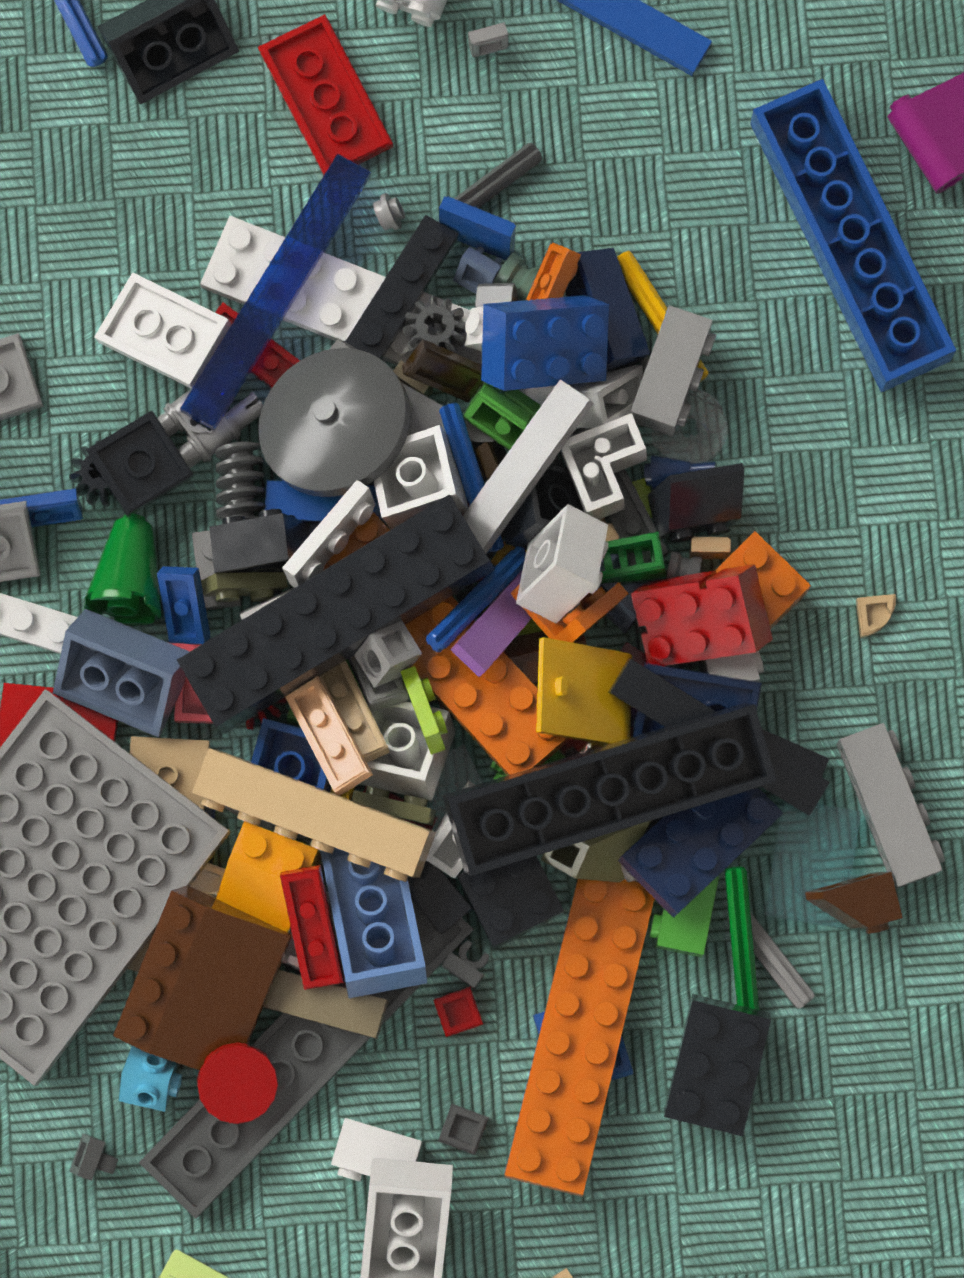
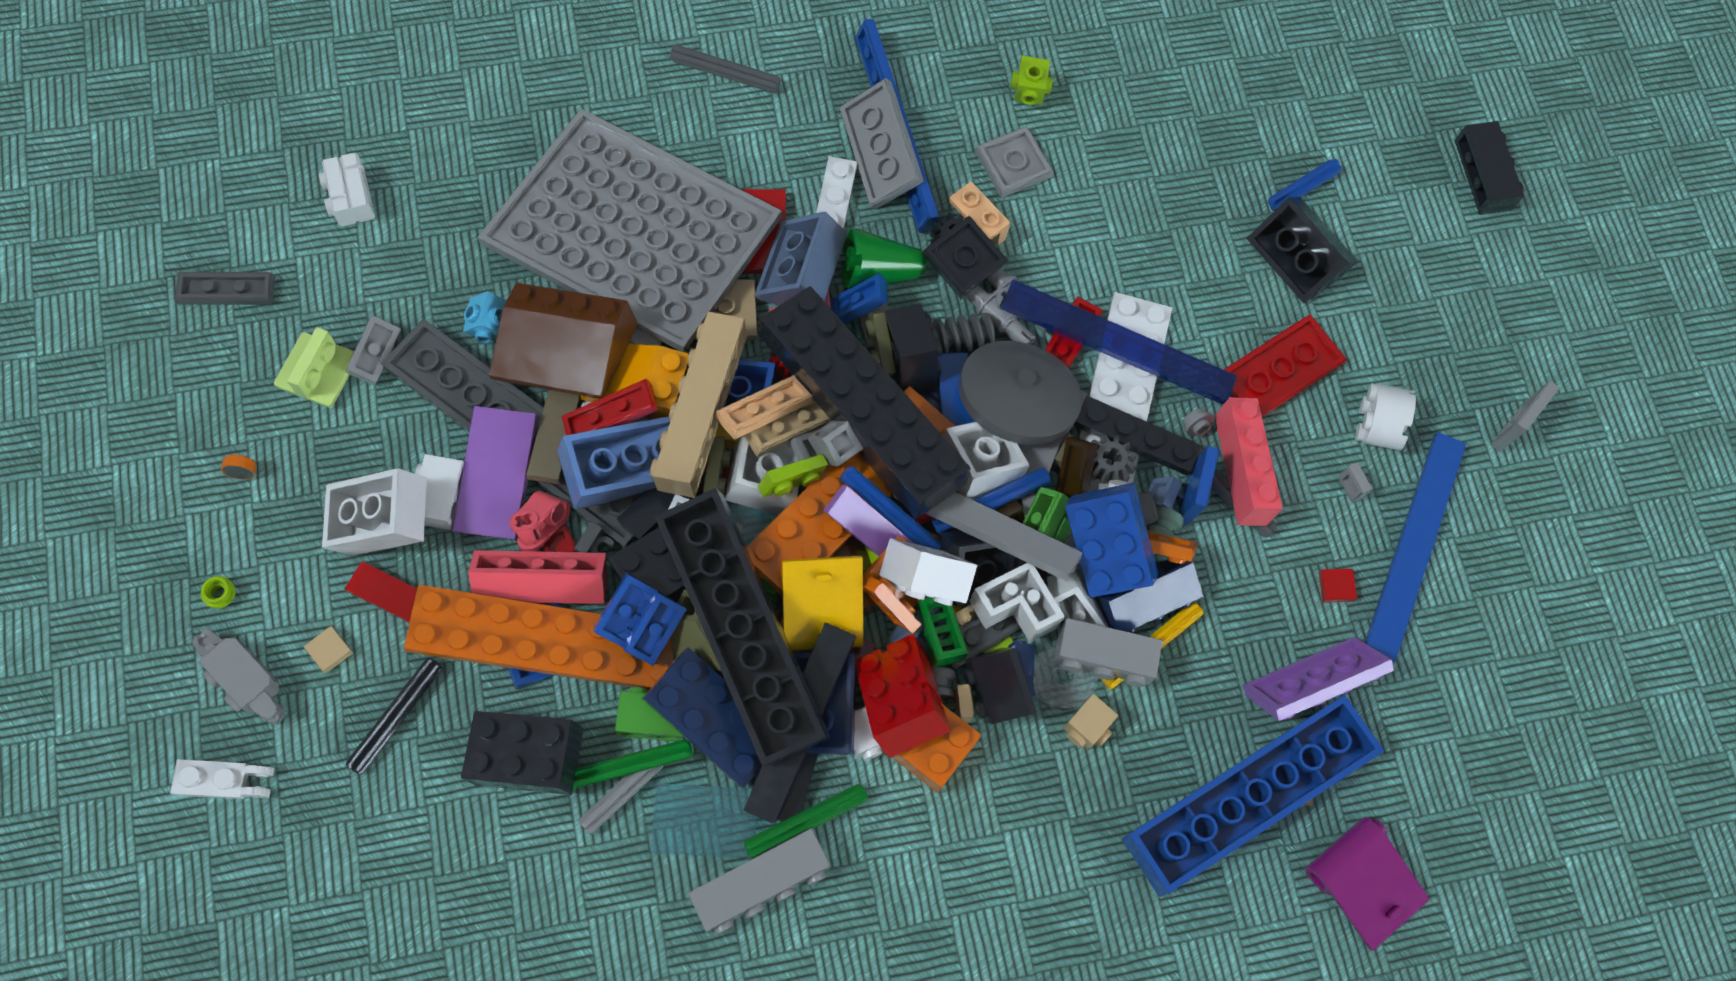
camera: 70 degrees right, 10 degrees down
(74, 435) = (974, 203): none -> light nougat bracket
(90, 1157) = (424, 287): dark grey tile -> none
(162, 330) = (1073, 265): white plate -> none
(174, 1229) = (372, 349): none -> light grey plate
(237, 1083) = (485, 376): red tile -> none
(330, 535) = (928, 392): white plate -> none
(362, 1079) = (495, 472): none -> medium lavender tile
(425, 1026) = (539, 517): none -> coral piece
(451, 162) = (1248, 462): none -> coral brick
(463, 1129) = (459, 558): dark grey tile -> none
(498, 1222) = (382, 591): none -> red tile
(503, 1032) = (540, 576): none -> coral brick
(575, 913) = (639, 619): none -> blue slope
(611, 87) = (1337, 585): none -> red tile
(651, 1219) = (393, 716): none -> black axle
(726, 135) = (1318, 678): none -> medium lavender plate
(749, 405) = (1090, 724): none -> tan brick
(827, 746) = (805, 820): none -> green axle
(860, 902) = (673, 862): reddish brown slope -> none
(874, 613) = (927, 853): tan tile -> none

